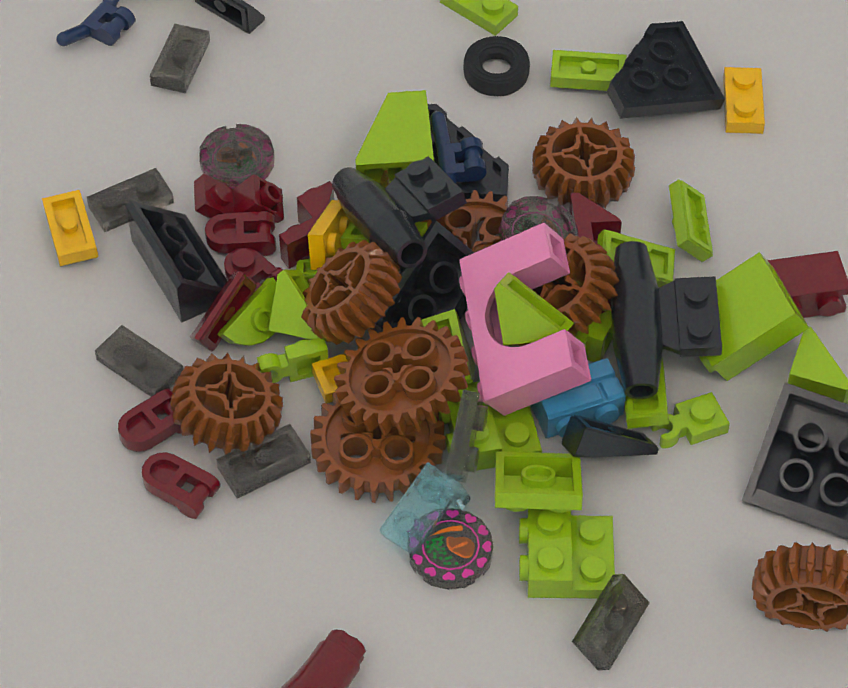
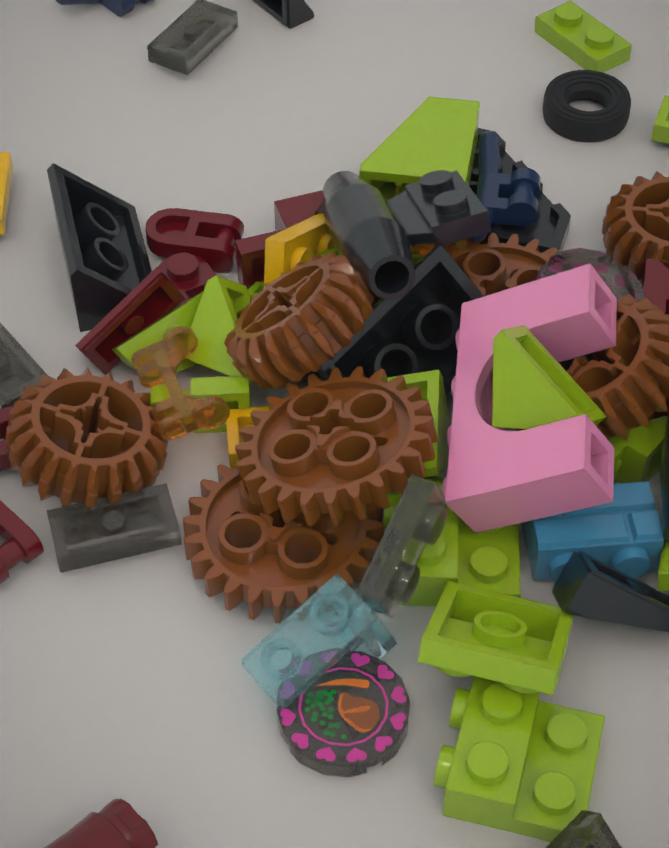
camera: 15 degrees right, 5 degrees down
(110, 204) = (94, 165): clear smoke plate -> none
(236, 154) = (223, 153): clear smoke tile -> none
(250, 196) = (227, 194): dark red slope -> none
(287, 373) = (180, 412): none -> clear orange piece

